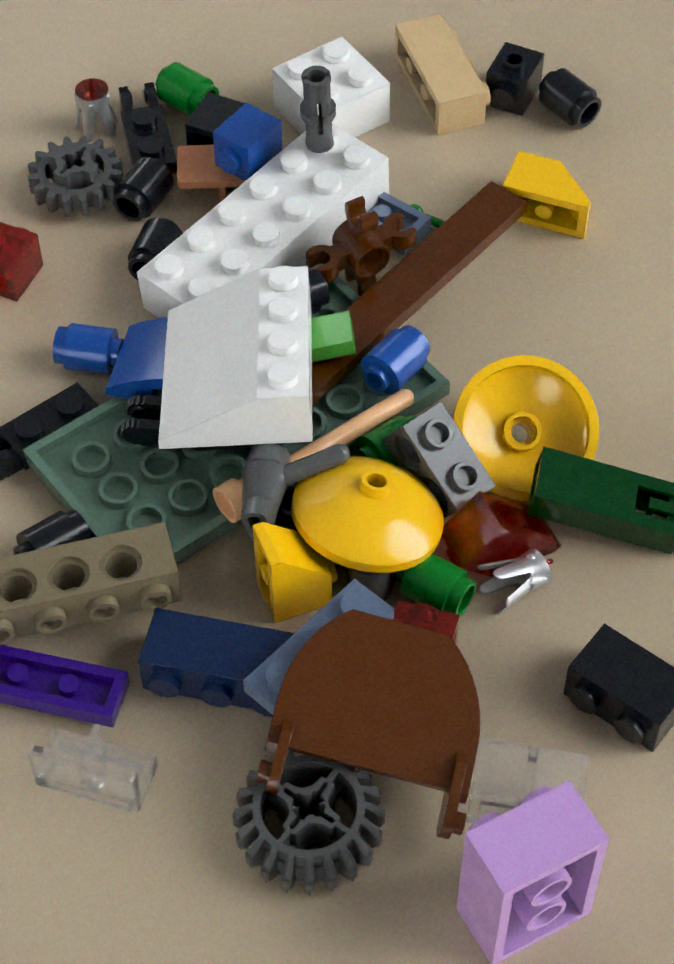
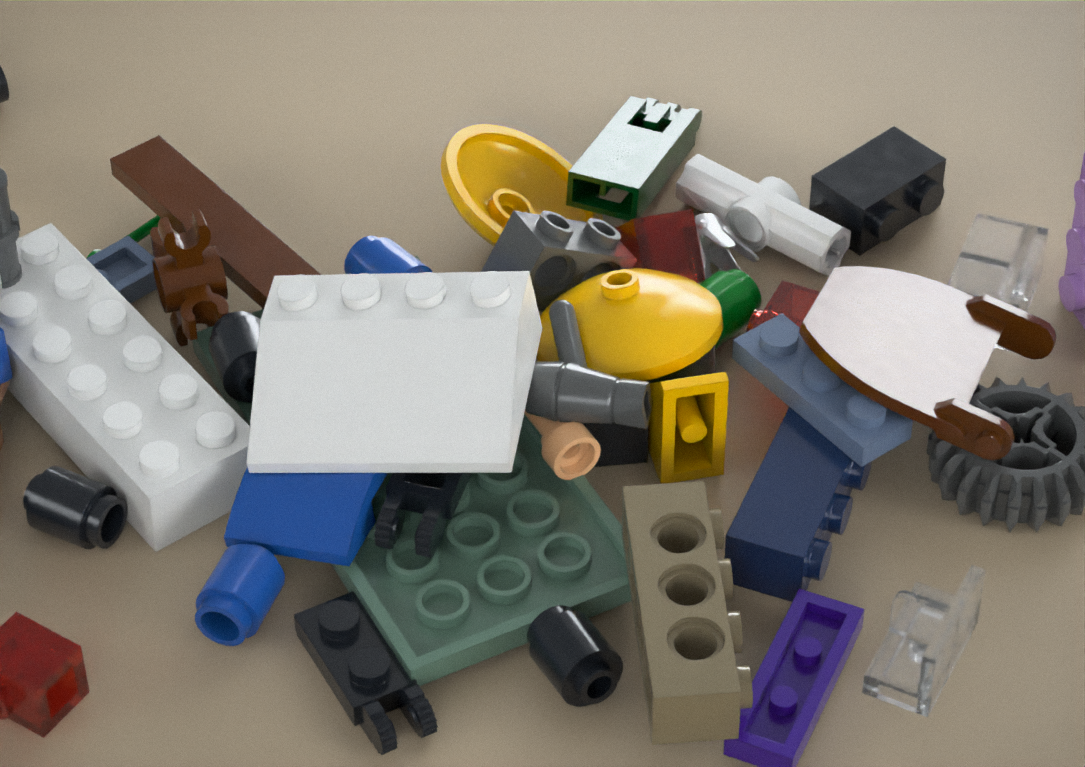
camera: 80 degrees left, 10 degrees down
(550, 193) = (125, 122): yellow slope -> none
(572, 606) = (763, 214): none -> white piece

